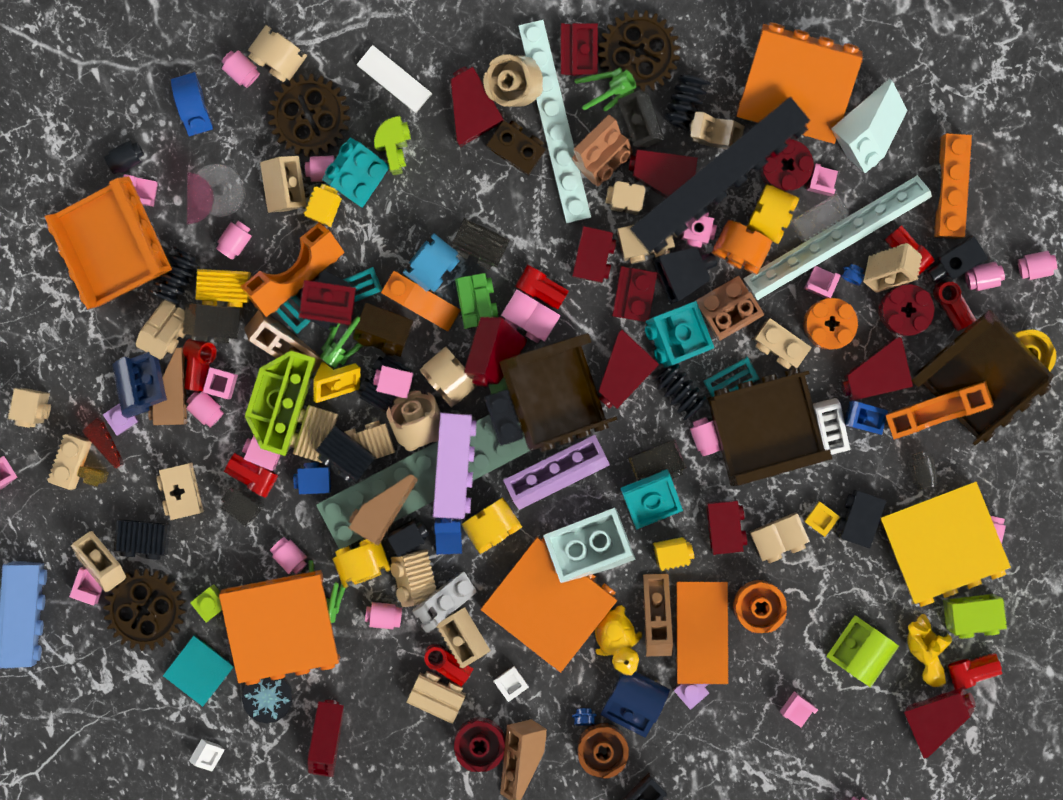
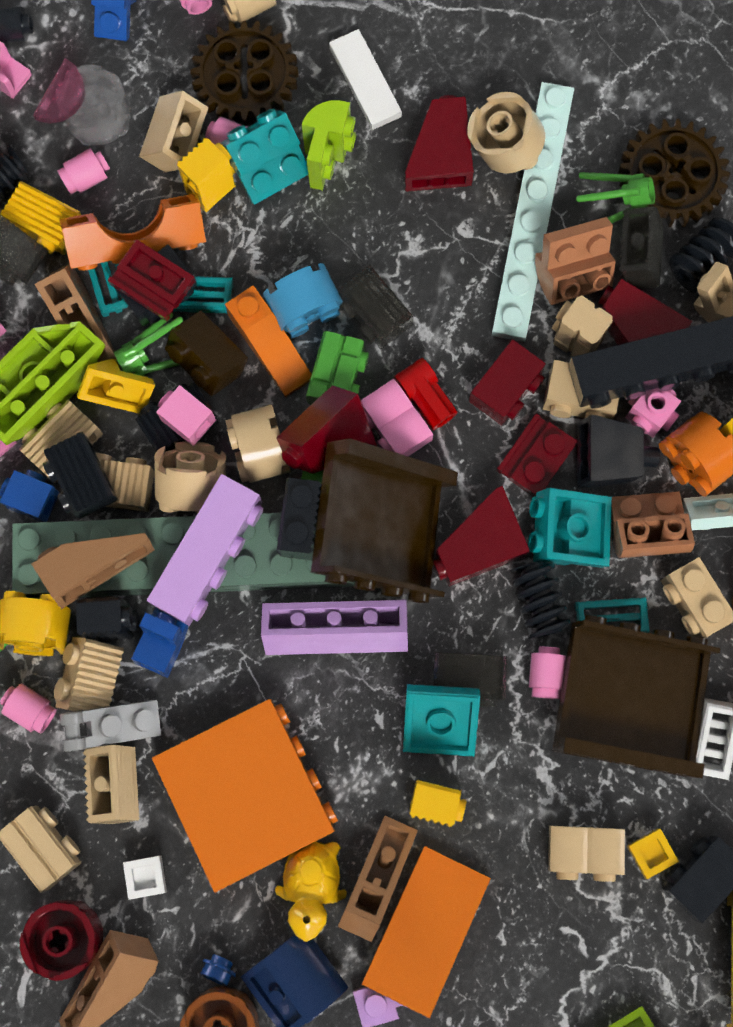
camera: 25 degrees right, 10 degrees down
(448, 665) = (74, 813): red piece -> none
(491, 525) = (219, 654): yellow brick -> none
(516, 147) = (473, 216): dark brown brick -> none
(579, 49) = (601, 138): dark red plate -> none
(589, 546) = (332, 742): light aqua slope -> none
(725, 527) = (521, 803): dark red brick -> none
(774, 606) = (539, 941): orange brick -> none

